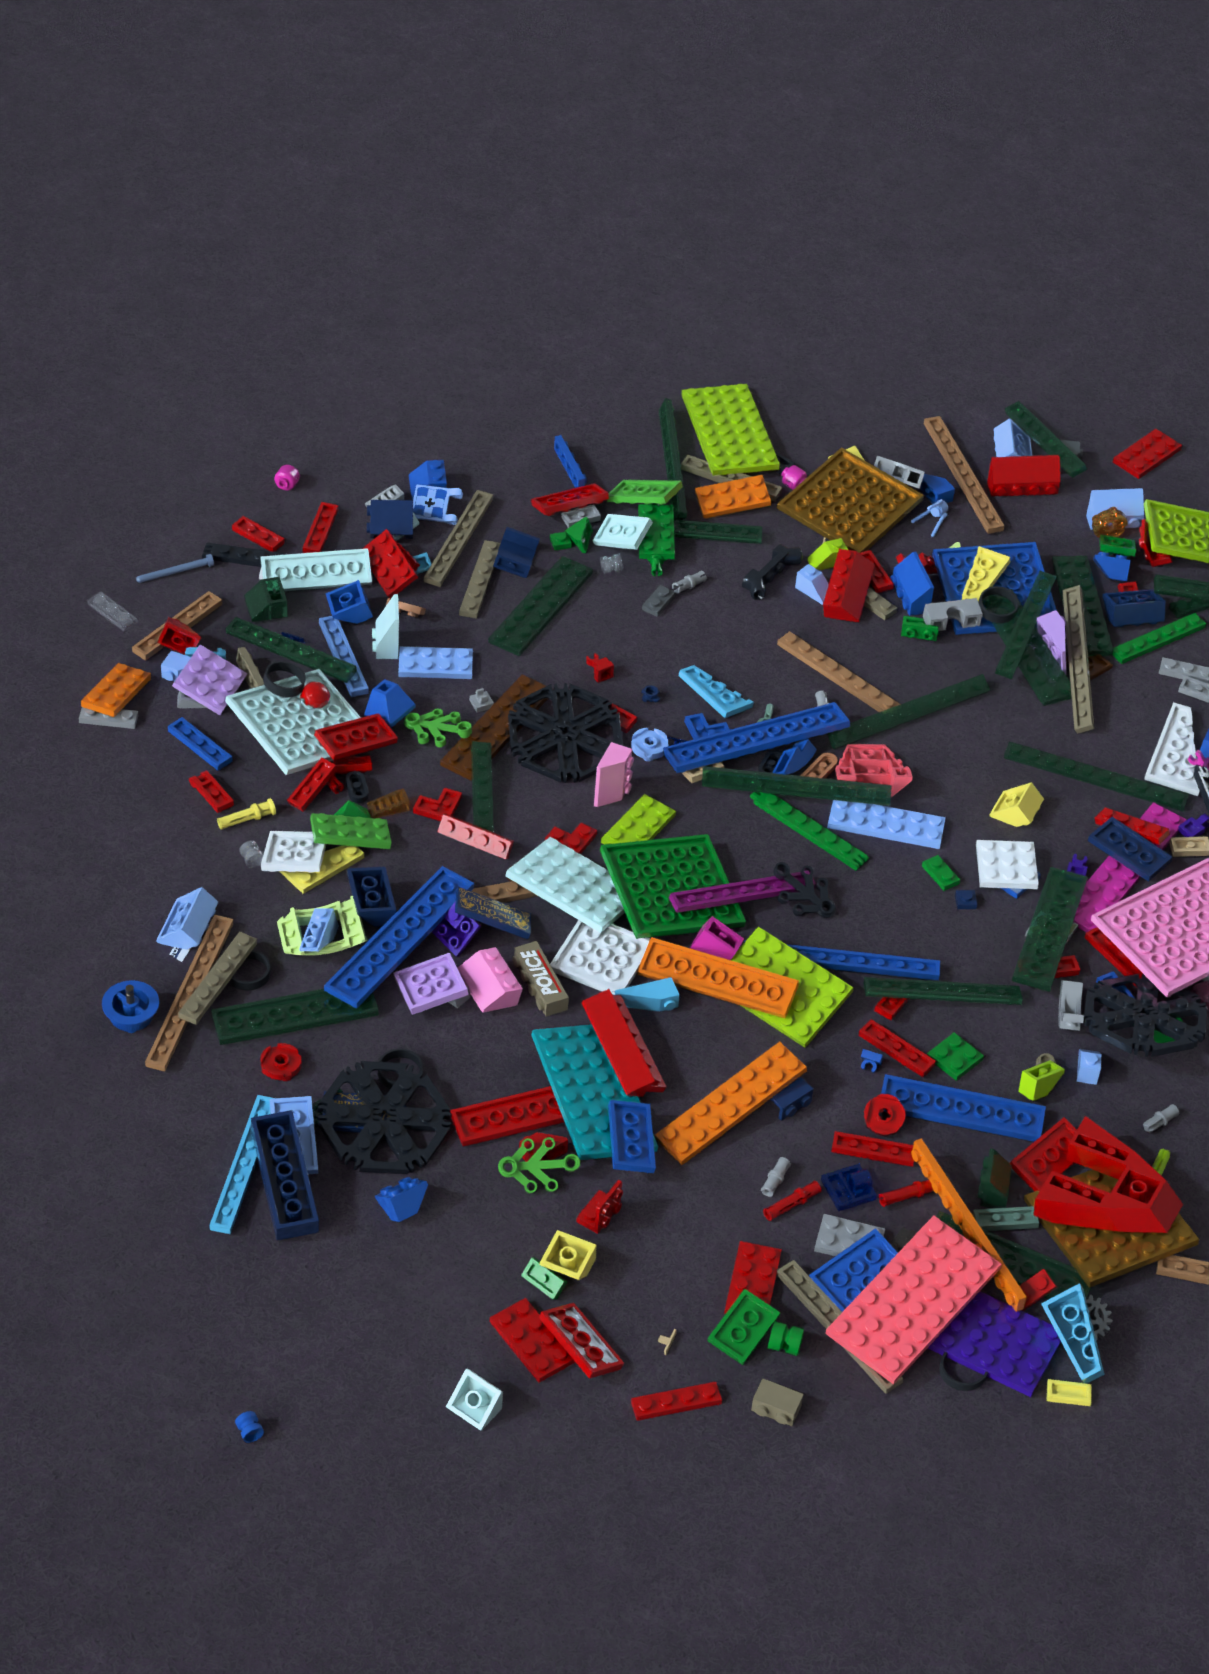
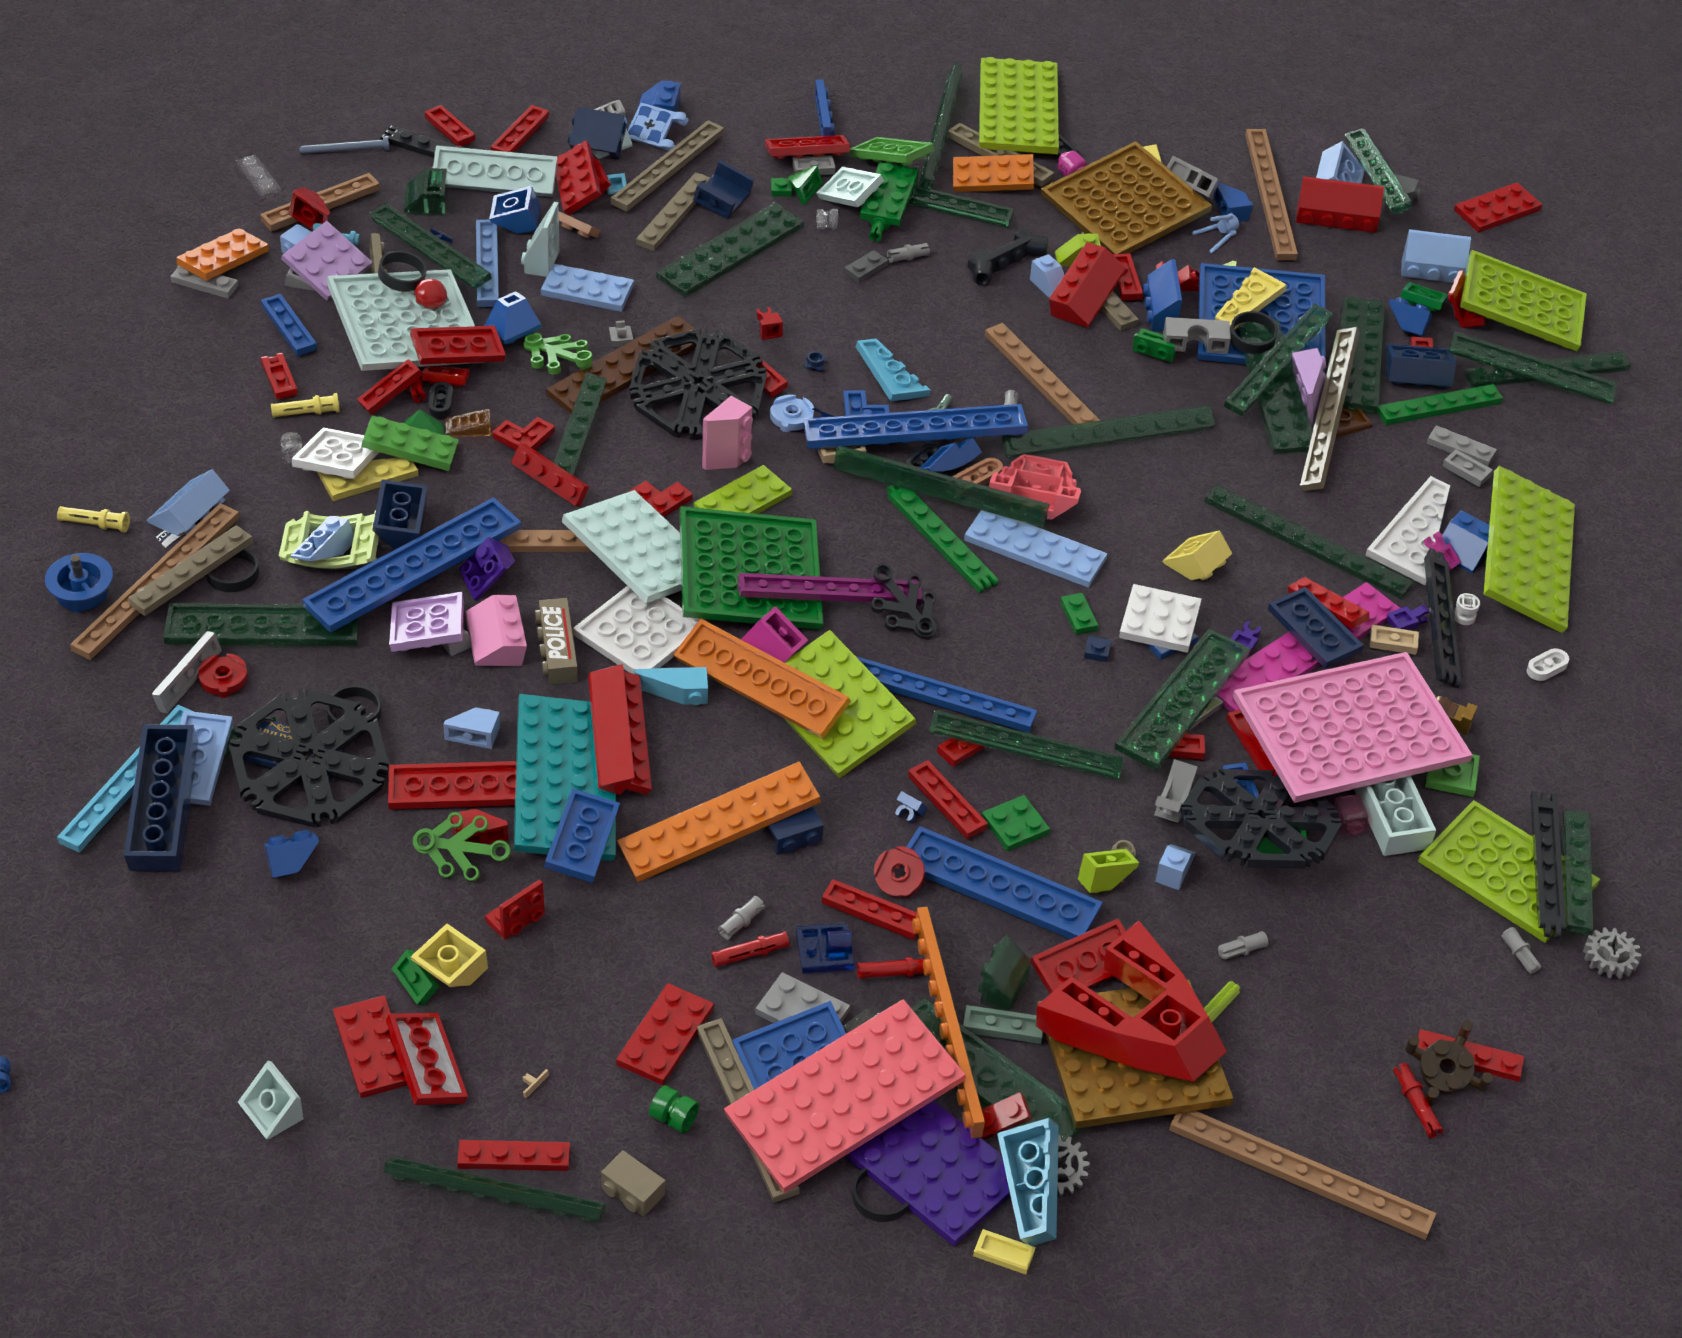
camera: 15 degrees right, 0 degrees up
(87, 949) = (104, 520): none -> light yellow pin
(251, 1066) = (185, 673): none -> light grey plate
(287, 477) = (506, 75): dark pink head -> none
(493, 913) = (529, 558): dark blue tile -> none
(504, 1065) = (473, 727): none -> light blue slope
(664, 1430) = (505, 1191): none -> clear green plate
(743, 1326) = (627, 1084): green plate -> none
(1113, 516) = (1424, 261): clear orange plate -> none

